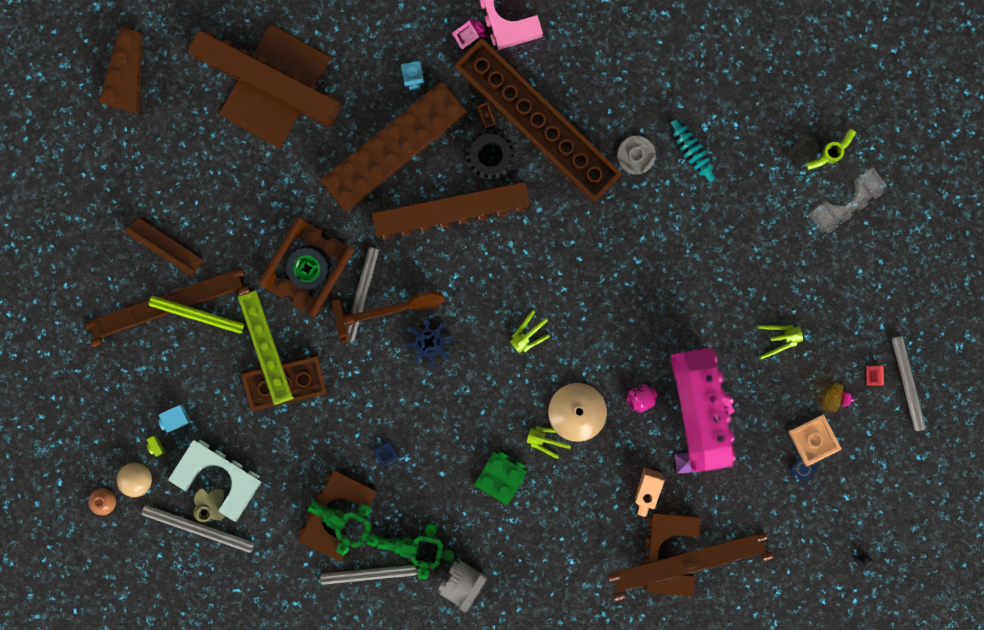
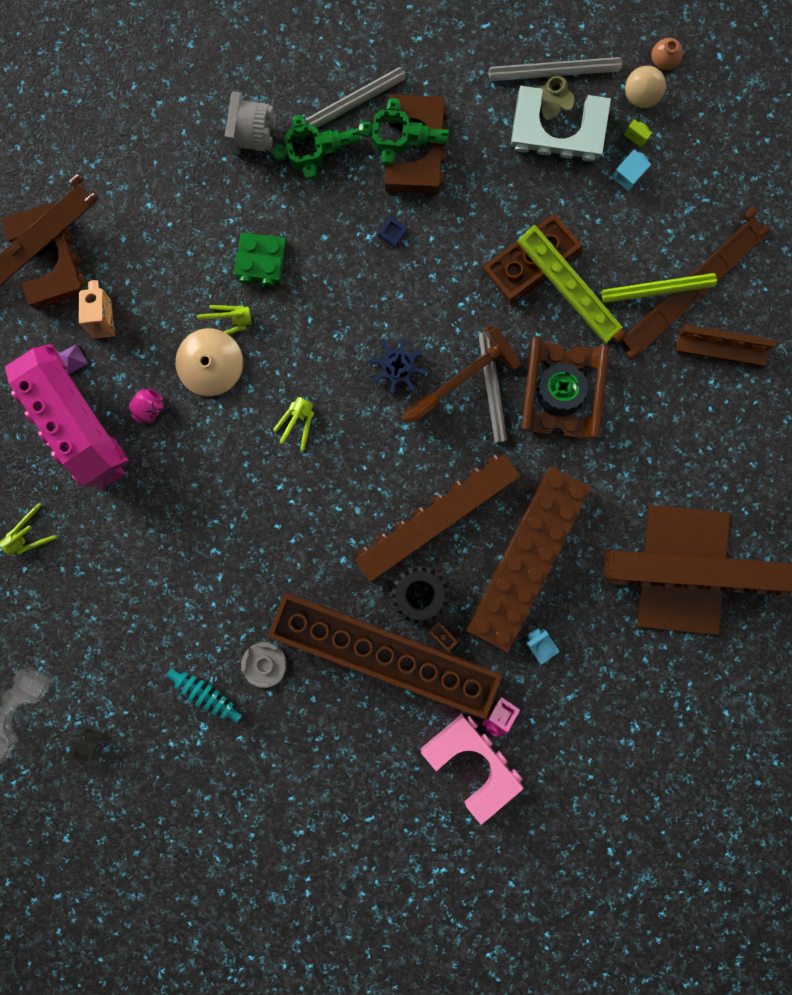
camera: 155 degrees right, 0 degrees up
(840, 150) = (60, 756): lime piece -> none

